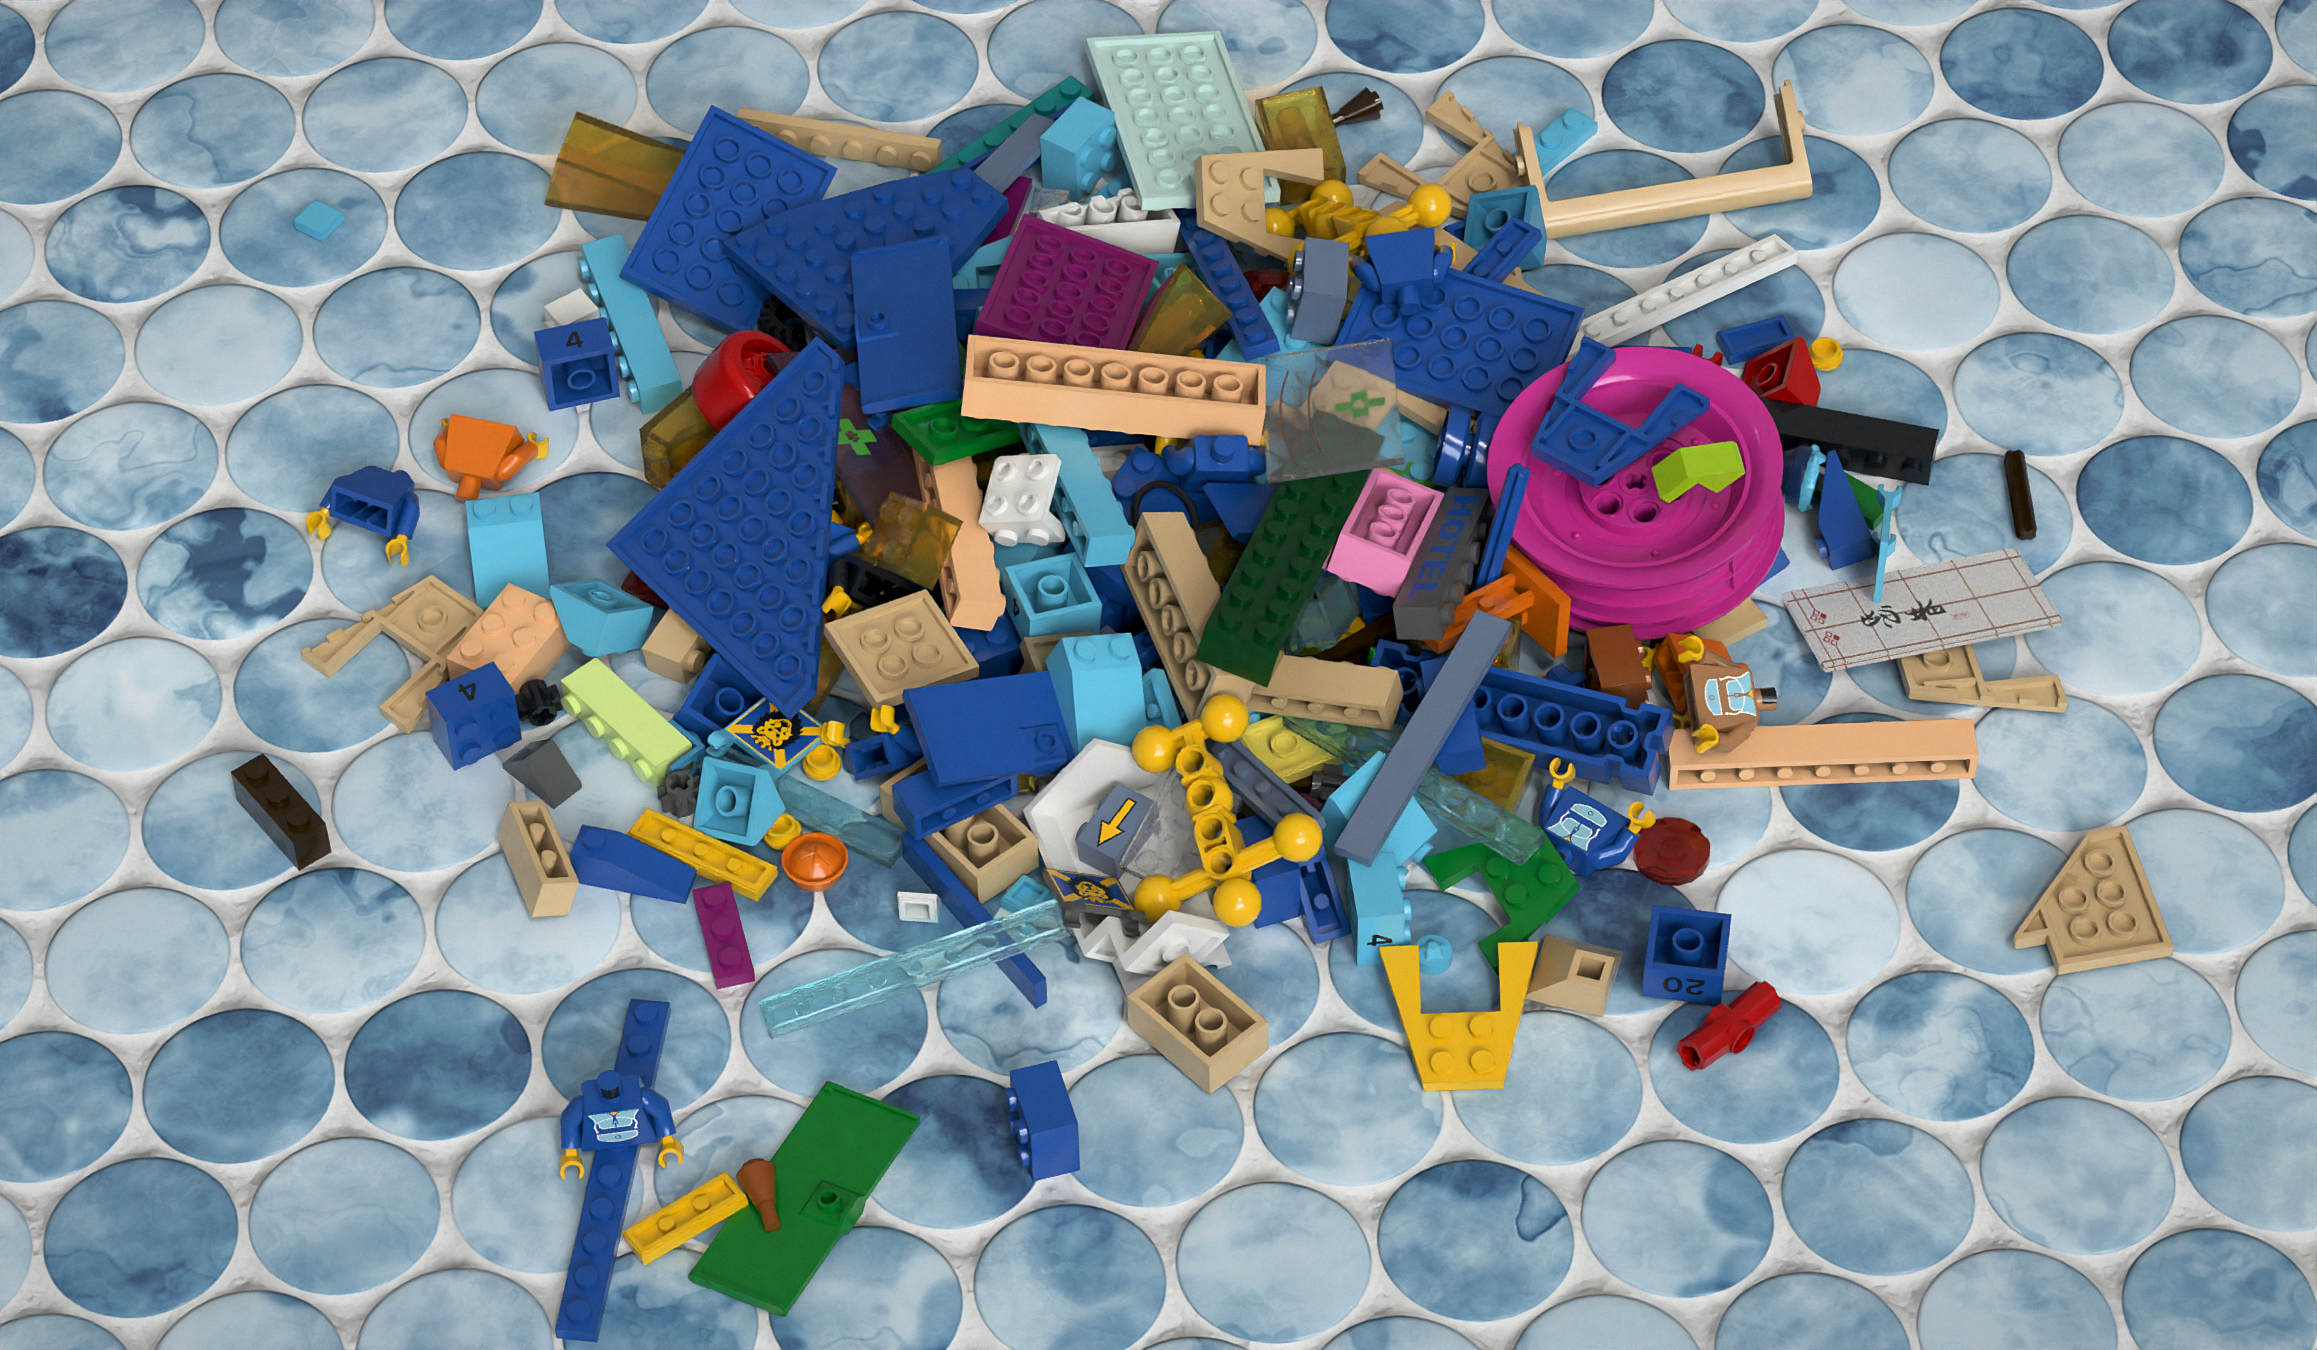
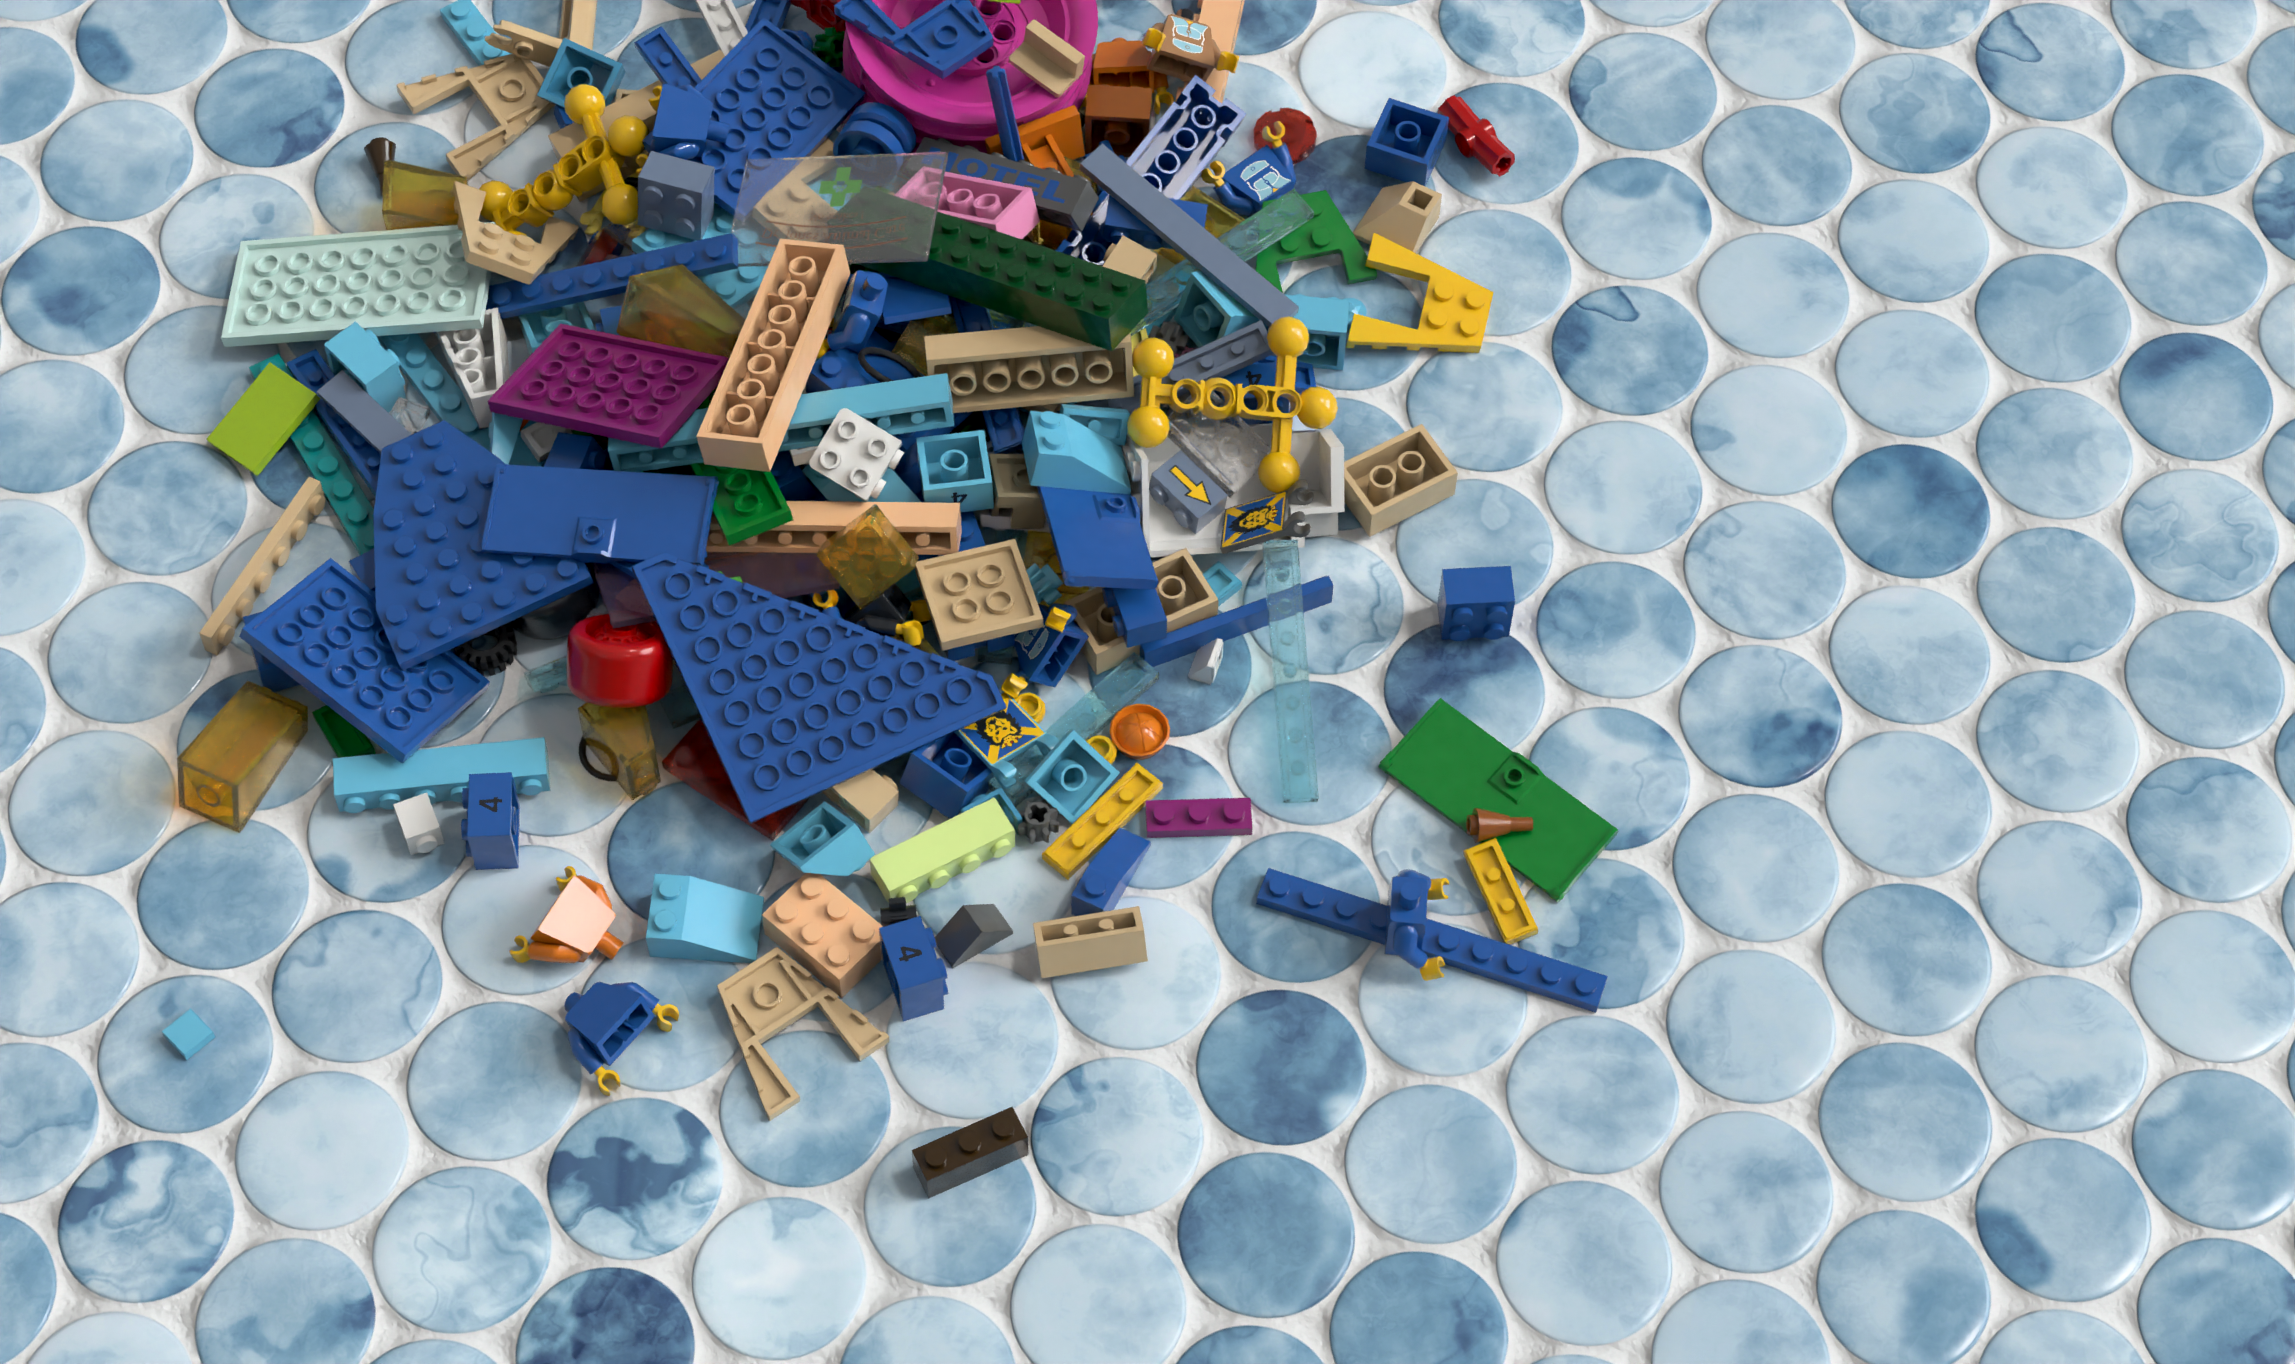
camera: 80 degrees left, 10 degrees up
(1006, 95) = (263, 419): none -> lime tile
(1595, 542) = (1047, 59): none -> tan panel

